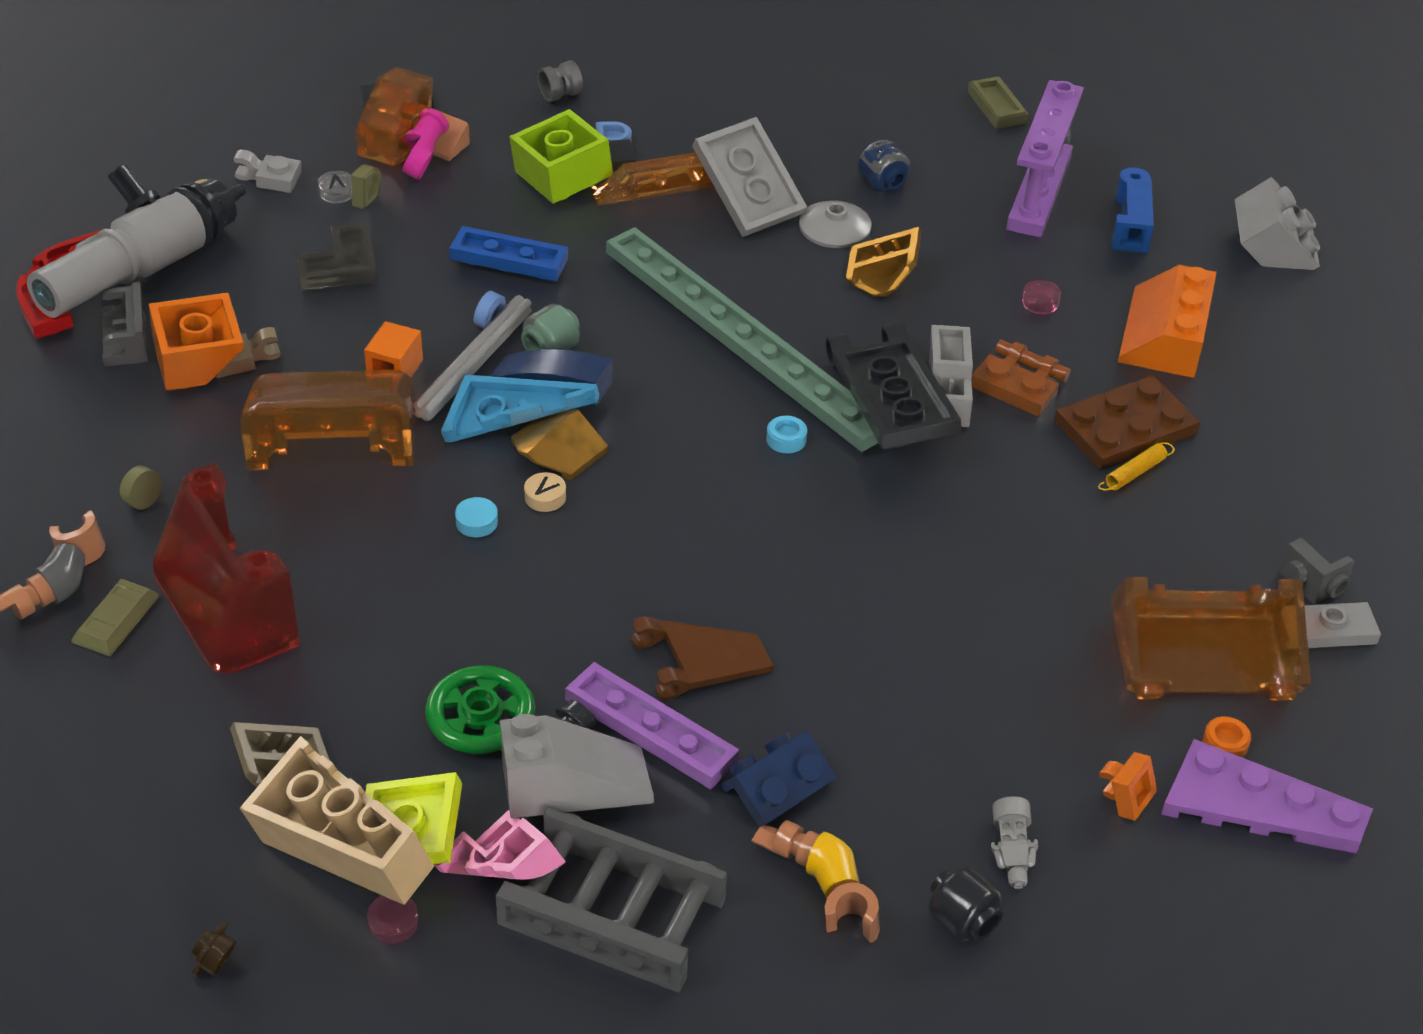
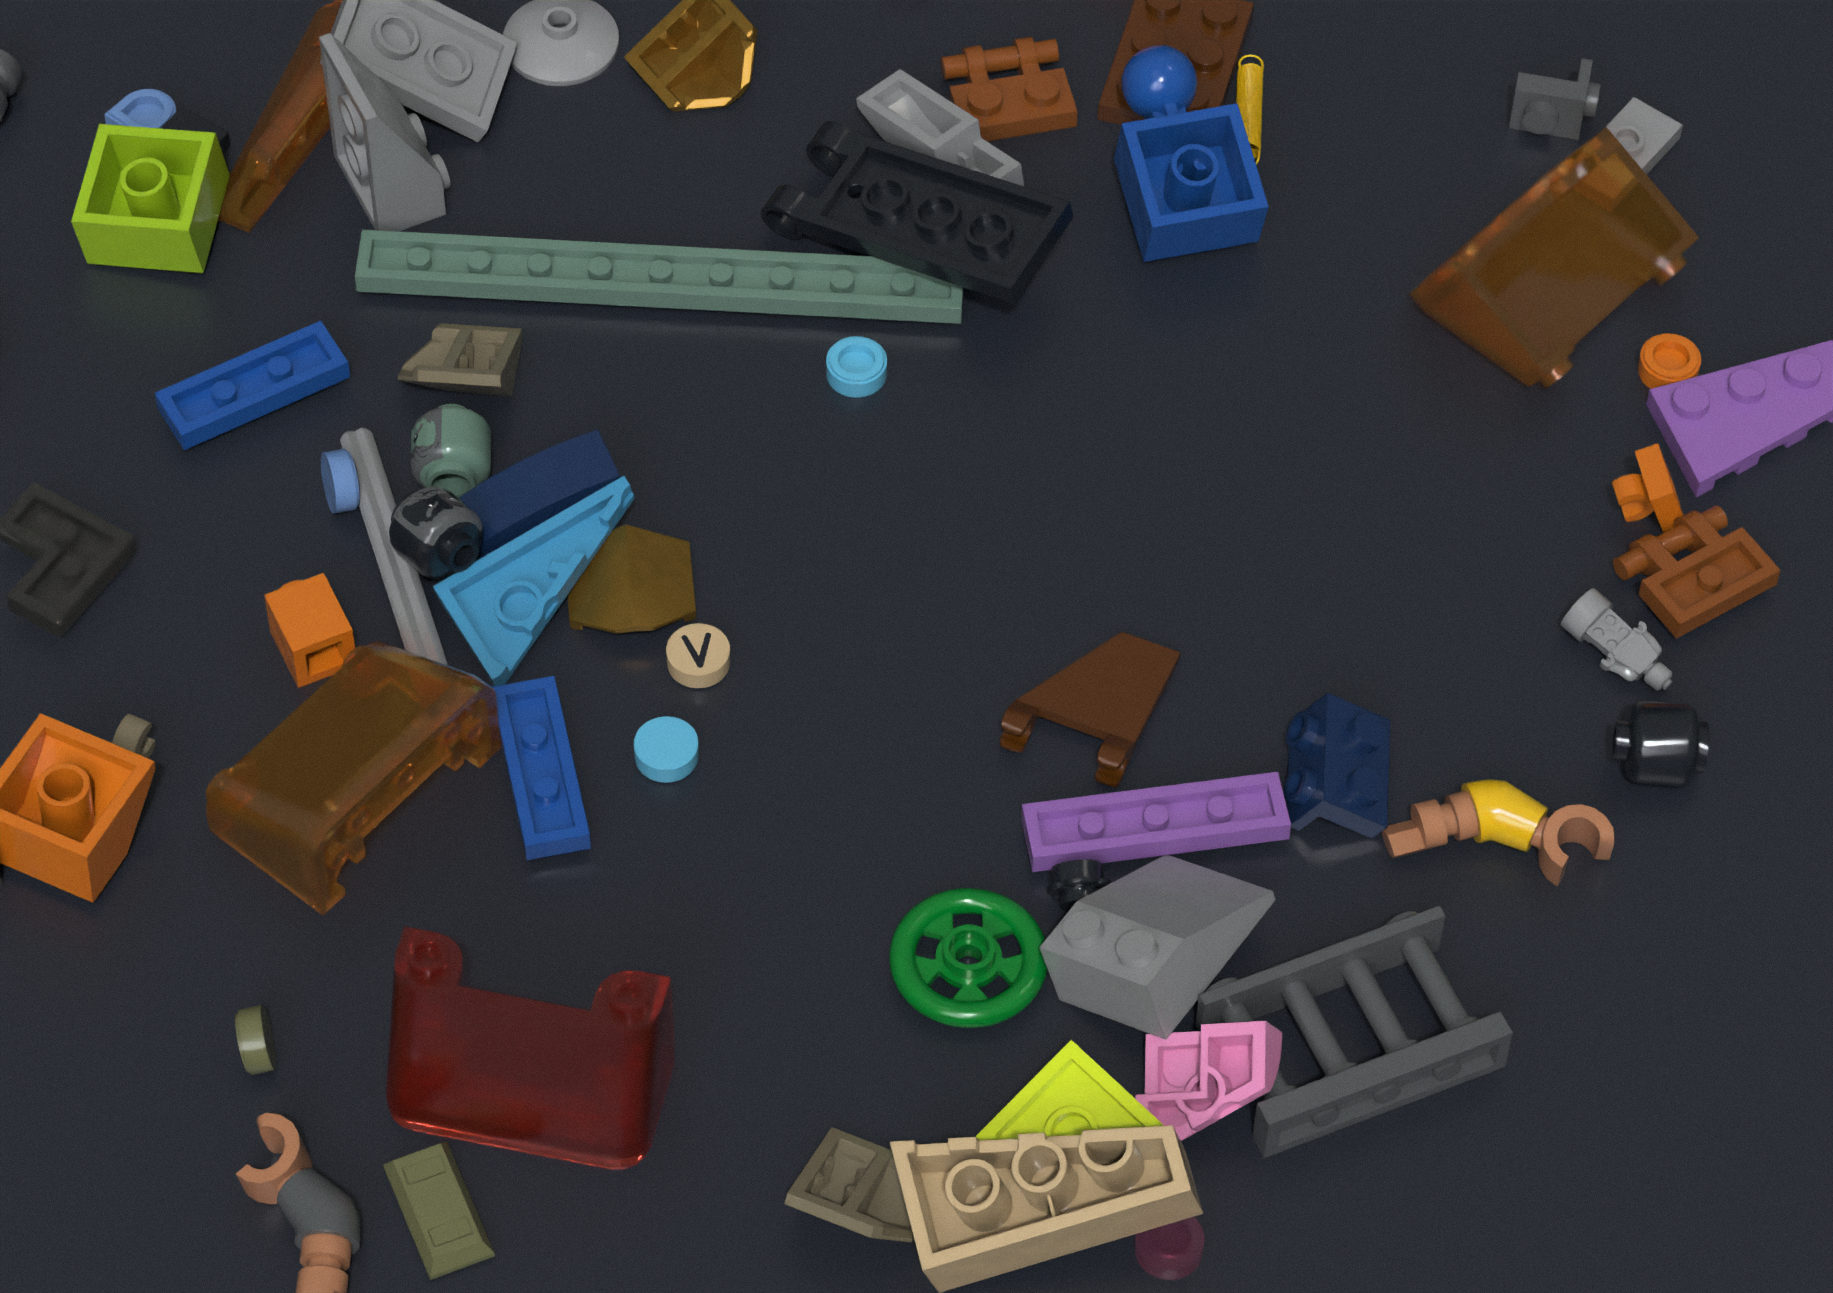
camera: 45 degrees left, 10 degrees up
(409, 480) = (541, 768): none -> blue plate
(490, 350) = (433, 531): none -> black head
(615, 311) = (467, 360): none -> dark tan slope
(680, 189) = (380, 145): none -> light grey slope
(1055, 457) = (1181, 171): none -> blue brick
(1103, 851) = (1704, 583): none -> dark orange plate

